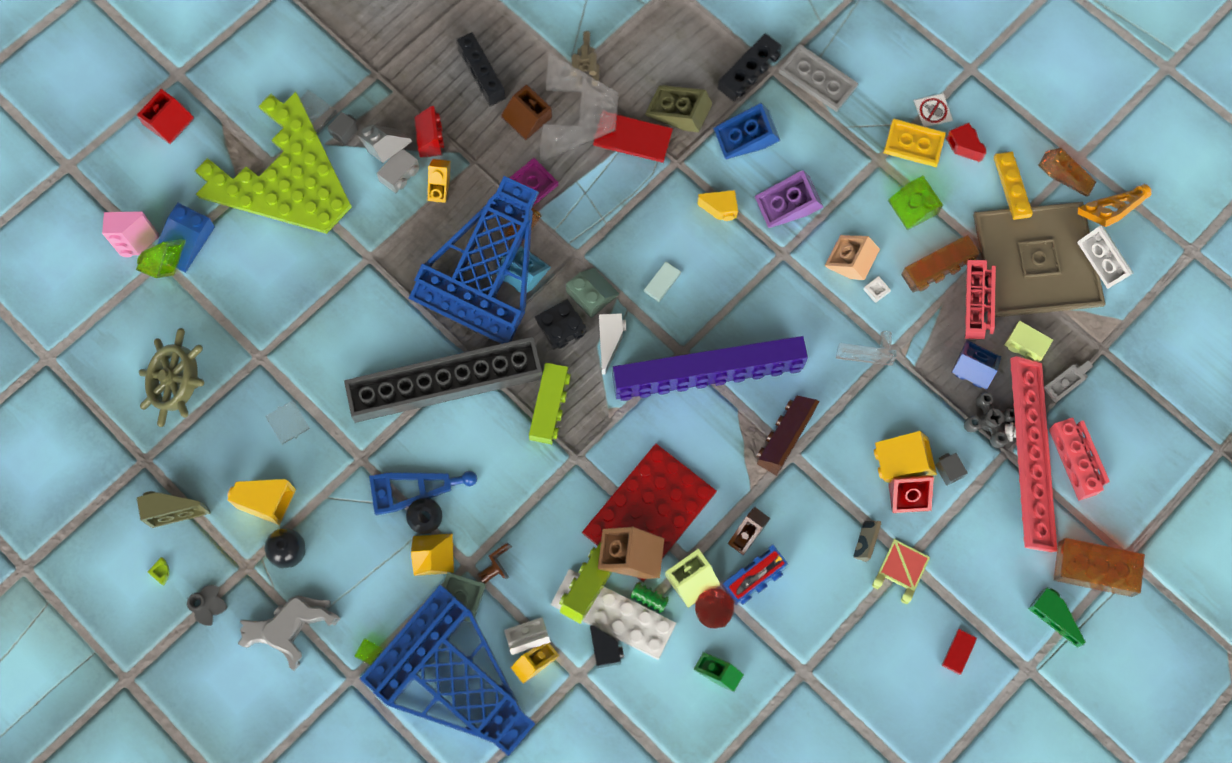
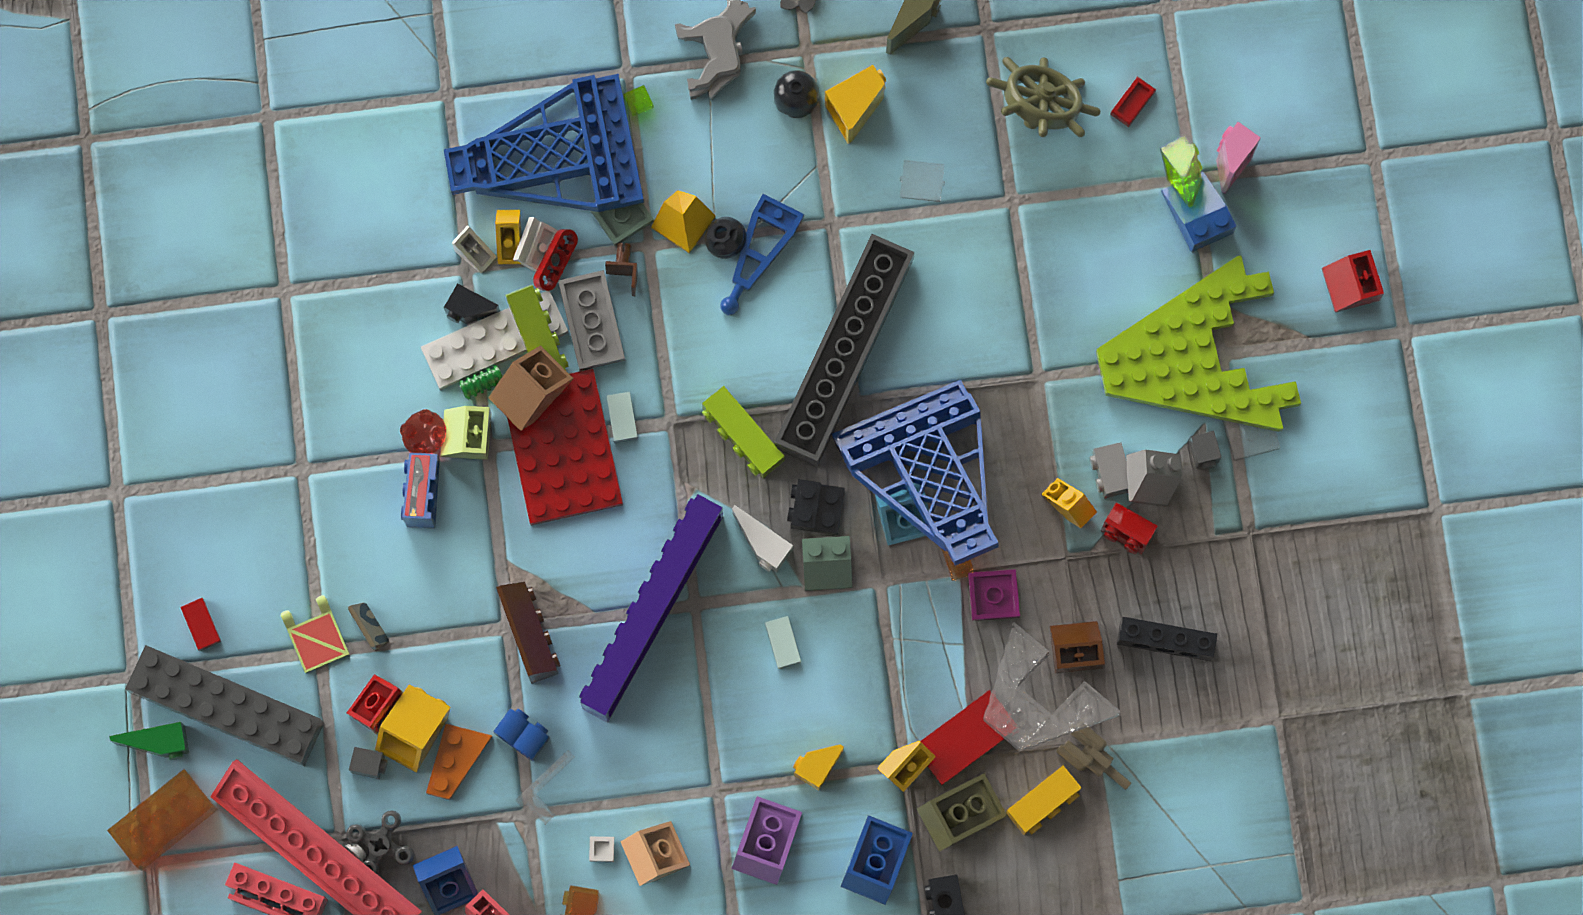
camera: 130 degrees right, 5 degrees up
(133, 330) = (1133, 101): none -> red tile
(514, 623) = (564, 256): none -> red beam
(549, 559) = (591, 320): none -> light grey plate
(563, 677) = (473, 249): none -> white slope
(599, 489) = (622, 417): none -> light aqua tile
(634, 69) = (1044, 801): none -> yellow brick
(680, 153) = (906, 764): none -> yellow slope
(719, 671) = (364, 390): green slope -> none
(749, 530) = (467, 522): reddish brown slope -> none
(851, 388) = (522, 734): none -> blue brick
(900, 419) = (454, 759): none -> orange wing
(997, 589) = (224, 705): none -> dark grey brick

